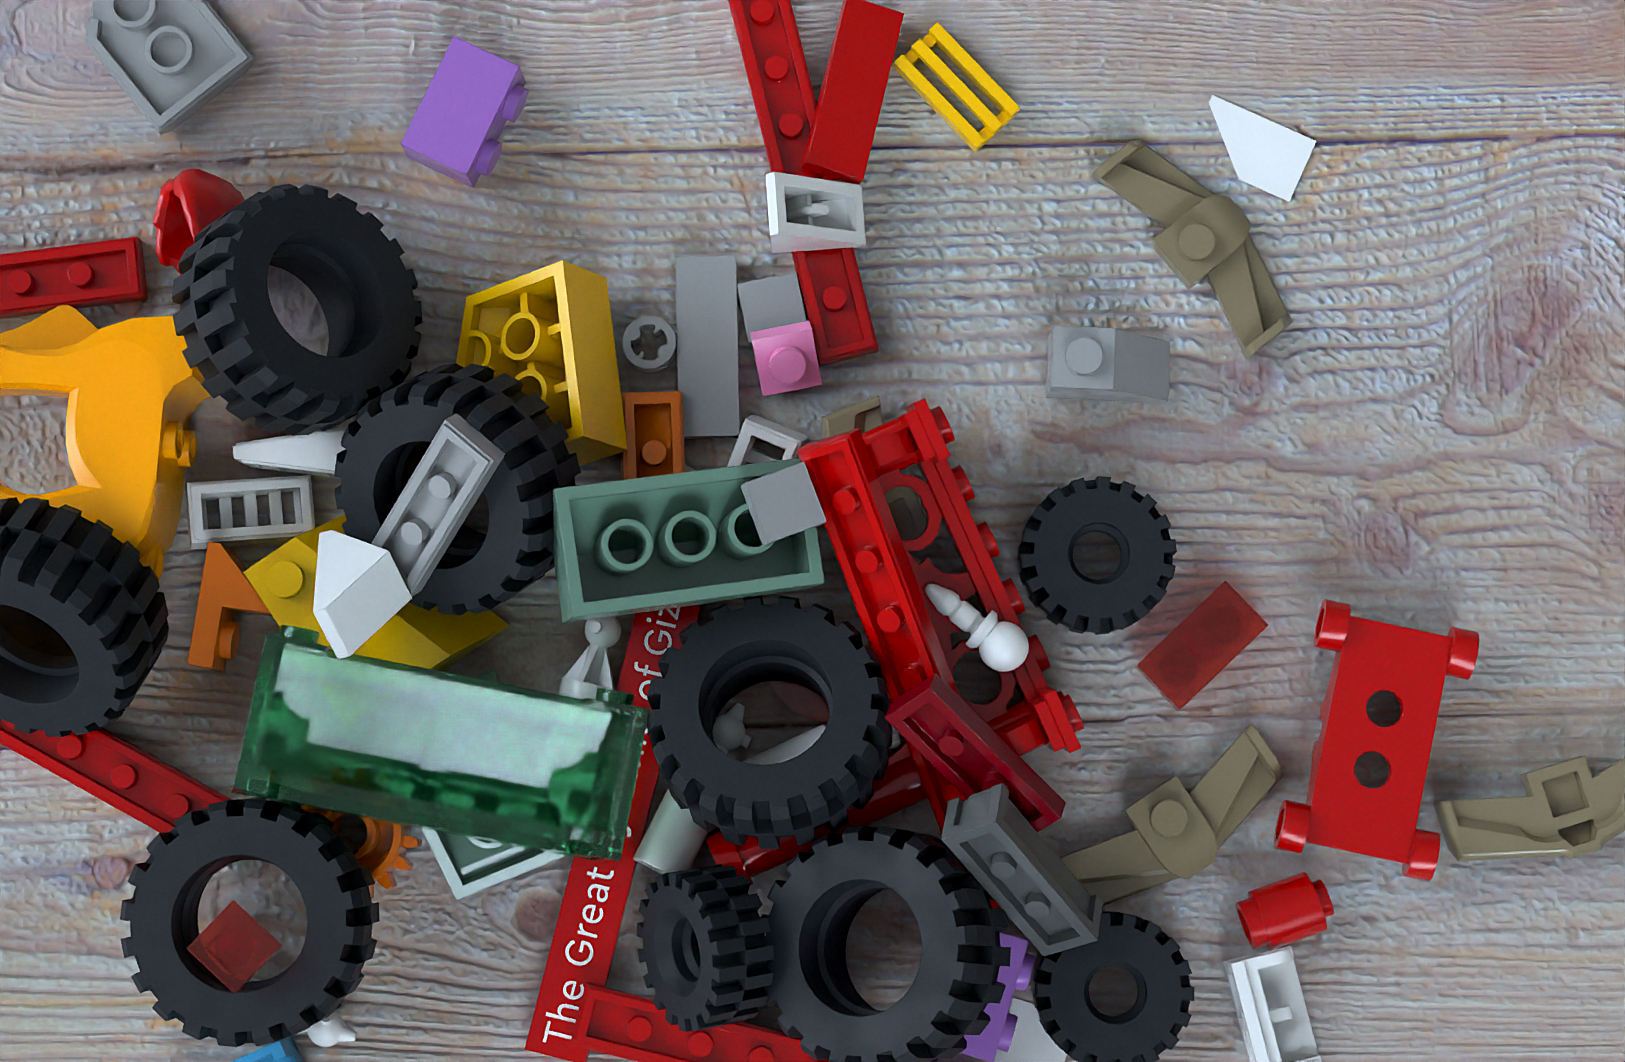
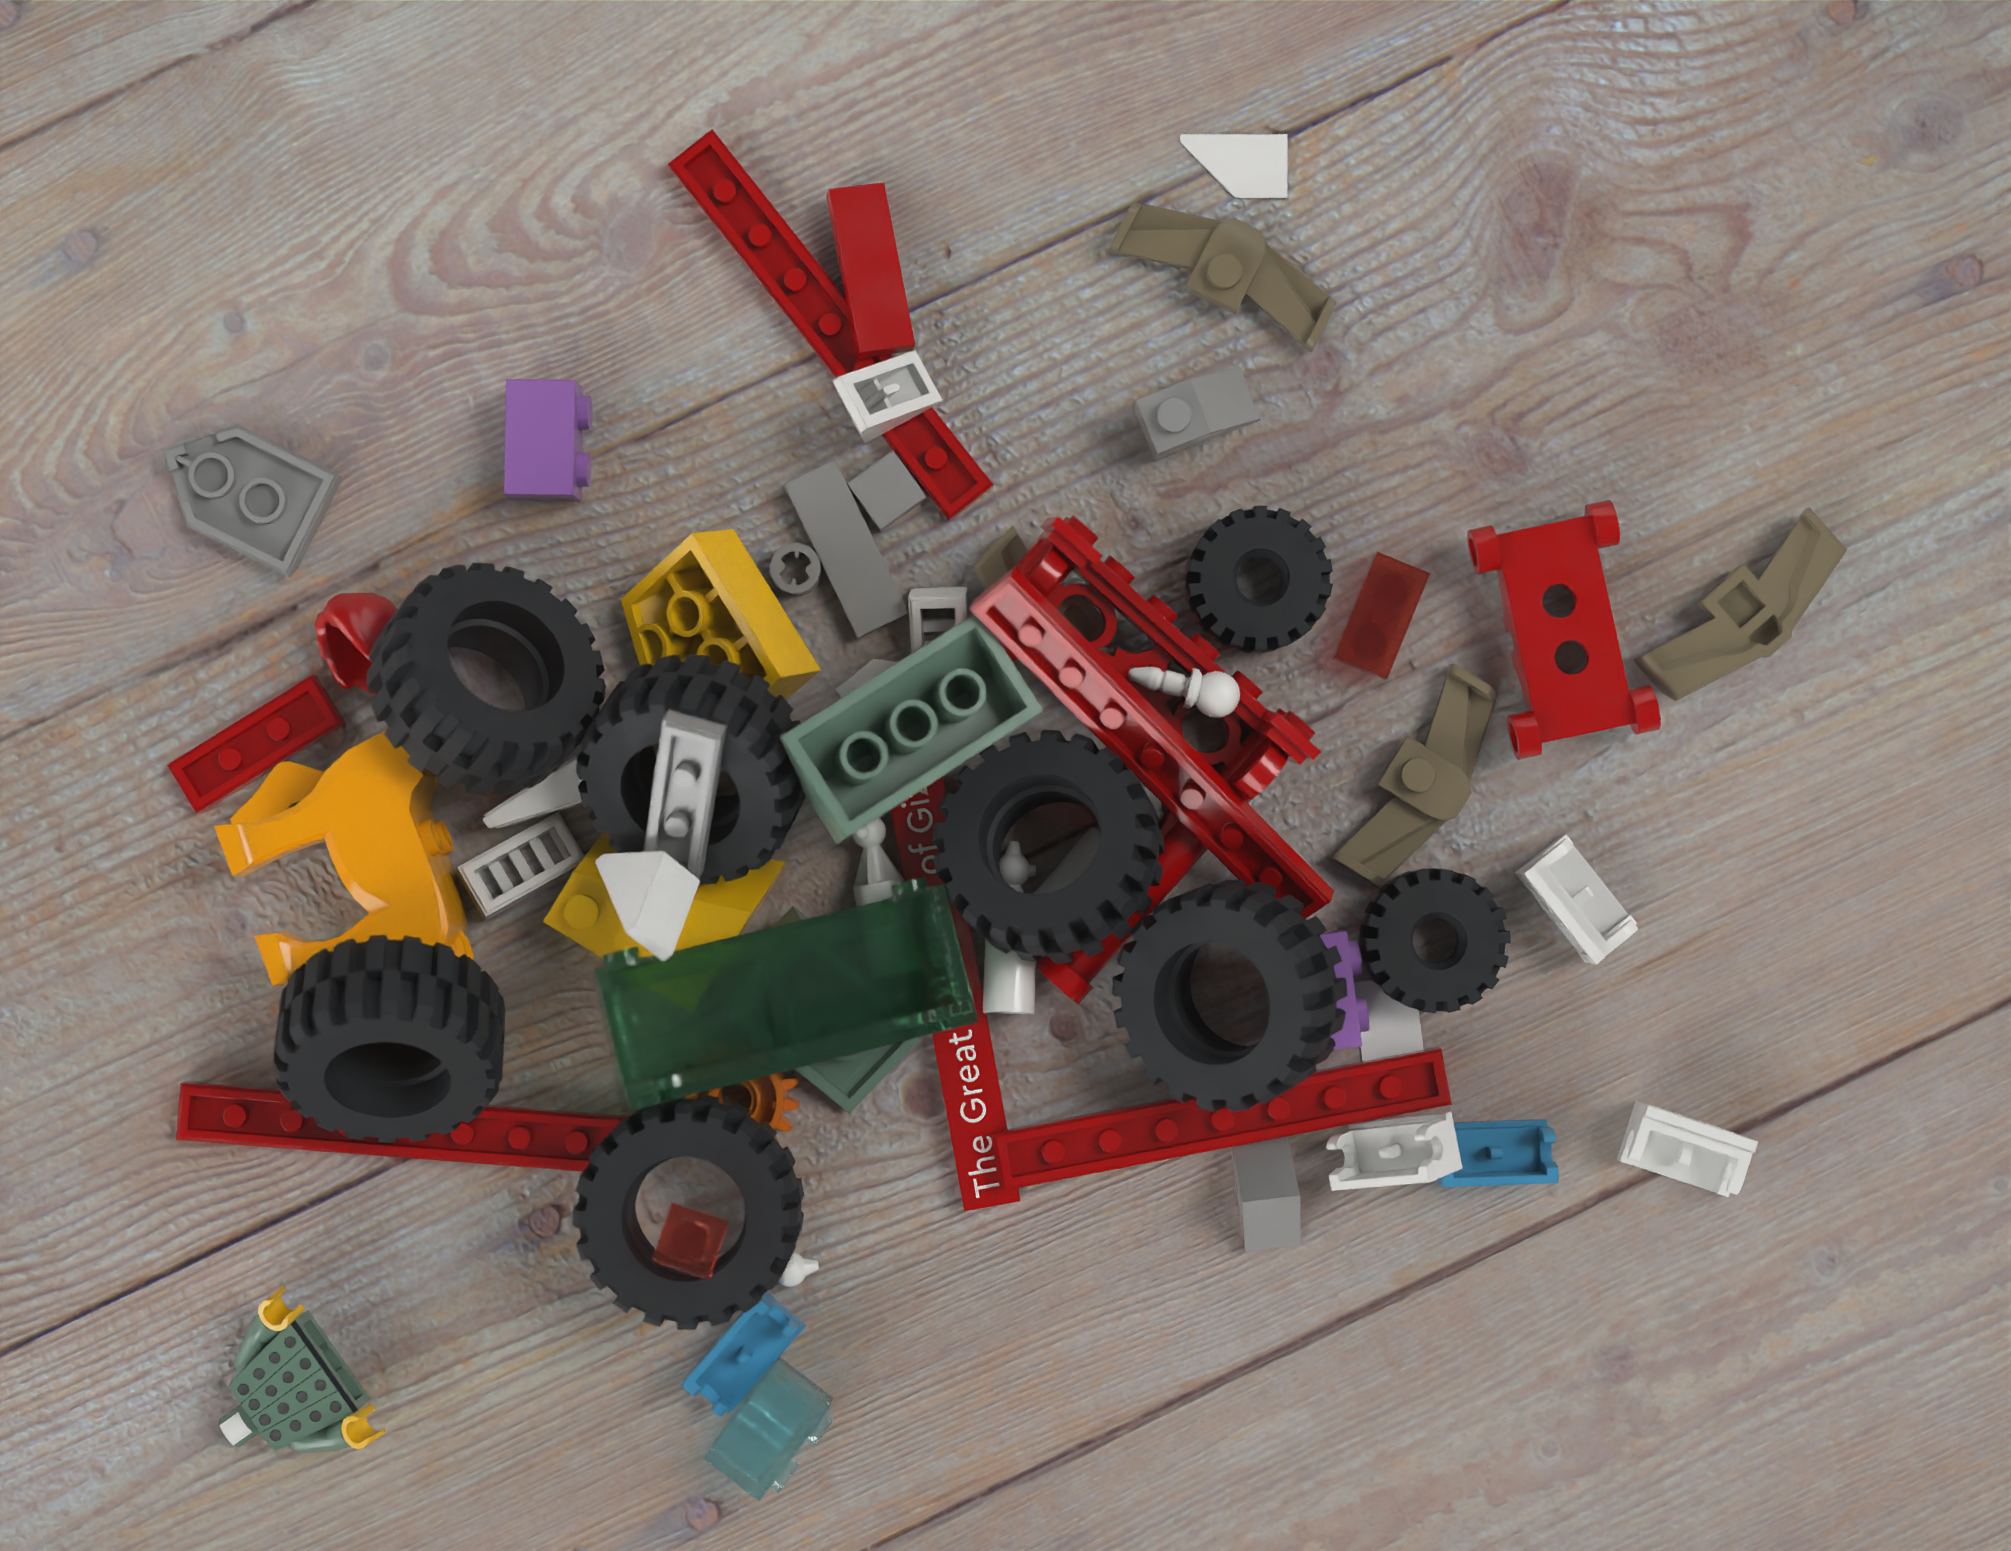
camera: 20 degrees left, 5 degrees up
(221, 593) = (530, 945): orange slope -> none
(652, 434) = (837, 649): orange slope -> none
(704, 947) = (1079, 1059): black tyre -> none
(783, 503) = (979, 660): light grey tile -> none
(786, 358) = (918, 529): bright pink plate -> none
(970, 750) = (1237, 802): dark red plate -> none
(973, 71) = (966, 206): yellow tile -> none
(1021, 871) = (1316, 877): dark grey container -> none
(1285, 911) = (1549, 809): red brick -> none

